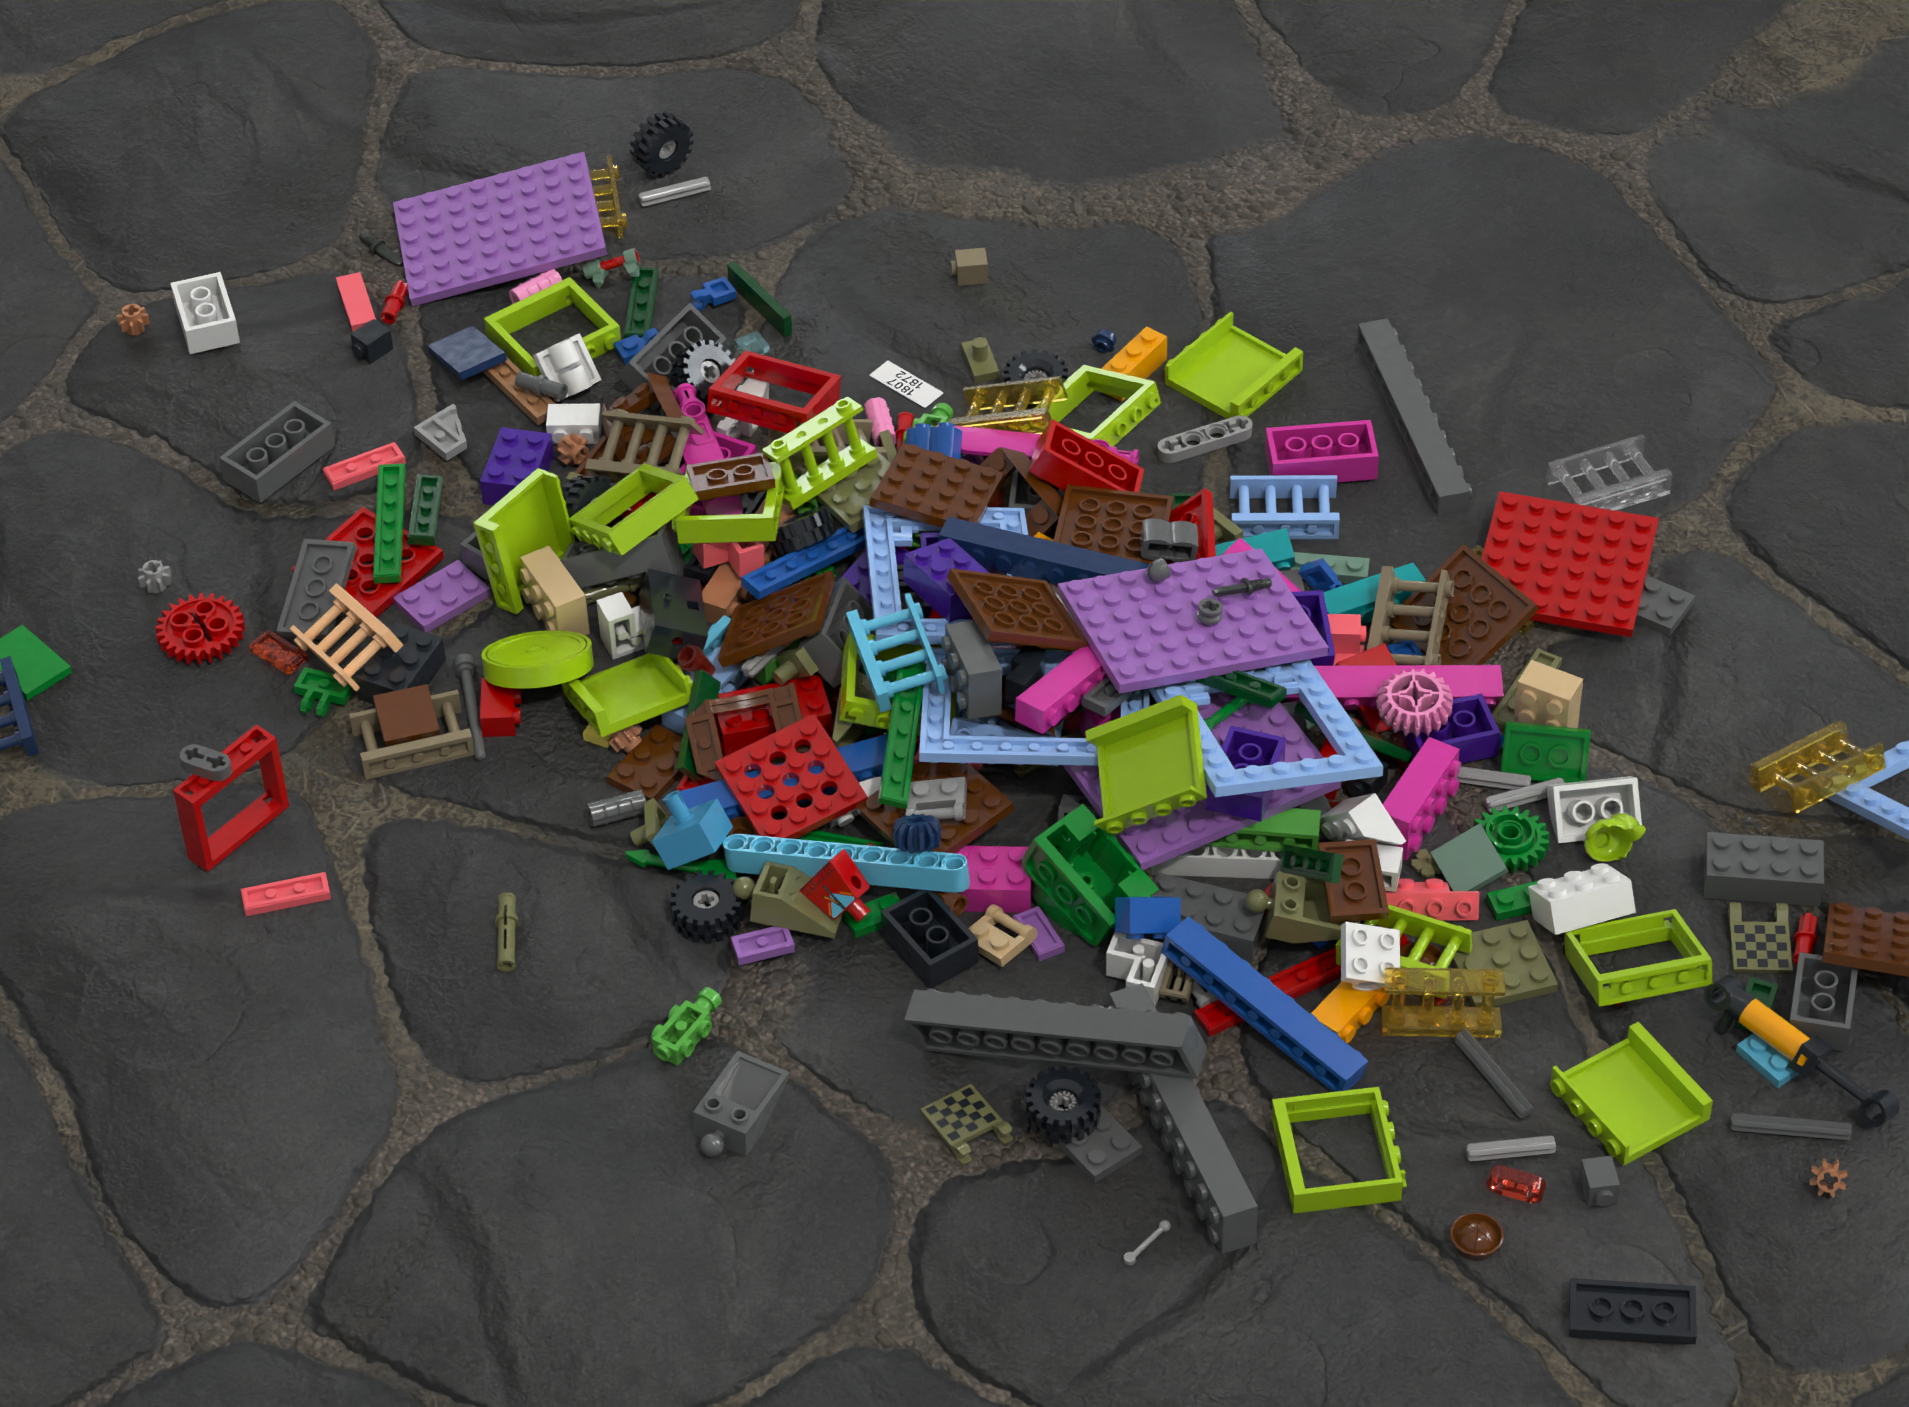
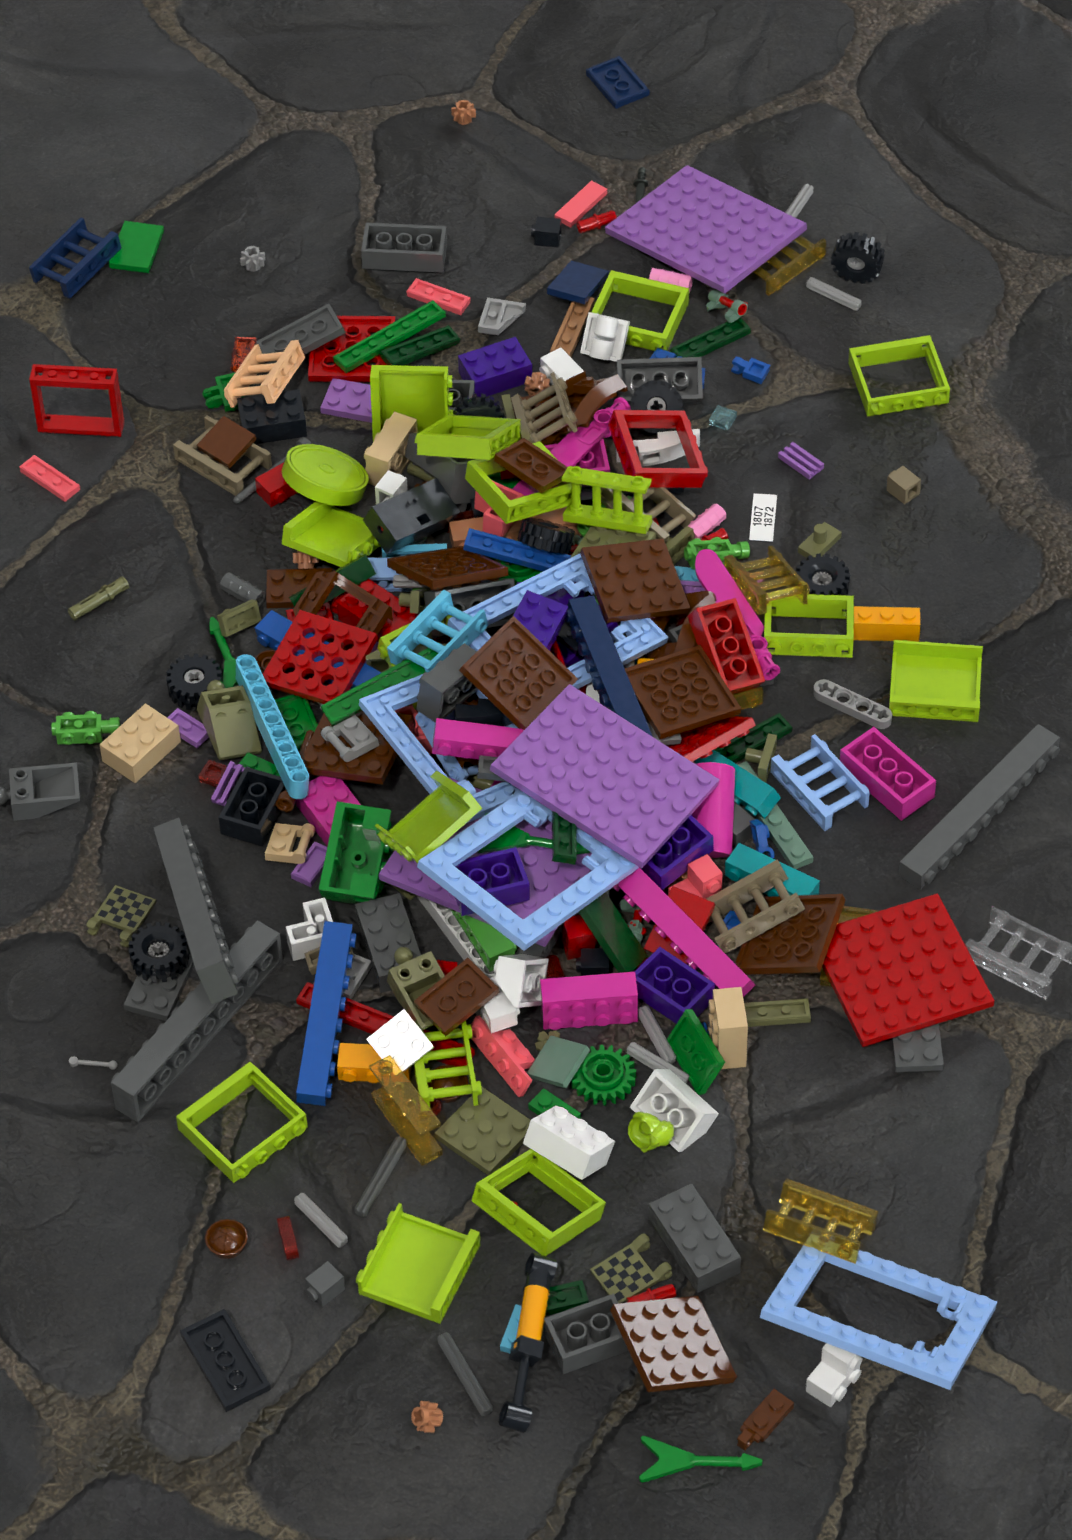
camera: 55 degrees right, 5 degrees up
(186, 639) = (227, 306): red gear -> none
(205, 313) = (495, 139): white brick -> none
(205, 762) = (62, 364): dark grey beam -> none
(219, 195) = (617, 82): none -> dark blue tile
(526, 150) = (800, 200): none -> light grey axle
(541, 385) = (575, 334): dark grey pin -> none
(691, 831) = (237, 633): dark azure brick -> none
(693, 659) = (378, 550): clear red cone -> none
(750, 991) = (140, 743): none -> tan brick
(759, 299) = (766, 395): dark green tile -> none
(838, 888) = (246, 726): red torso -> none
(839, 170) = (893, 352): none -> lime window
(846, 952) = (212, 773): none -> clear red plate
(864, 320) = (803, 459): none -> medium lavender tile
(886, 941) = (223, 782): none -> medium lavender tile
(917, 833) = (307, 742): dark blue gear -> none
(942, 439) = (686, 556): blue brick -> none
(1104, 341) = (898, 596): dark blue plate -> none
(1147, 915) = (341, 902): blue brick -> none
(1158, 570) = (624, 729): dark grey hinge -> none
(1169, 540) = (680, 724): dark grey brick -> none
(1209, 611) = (608, 783): dark grey bush -> none
(1245, 587) = (654, 785): pearl dark grey piece -> none
(1311, 863) = (448, 965): dark green tile -> none
(1427, 710) = (659, 954): bright pink gear -> none

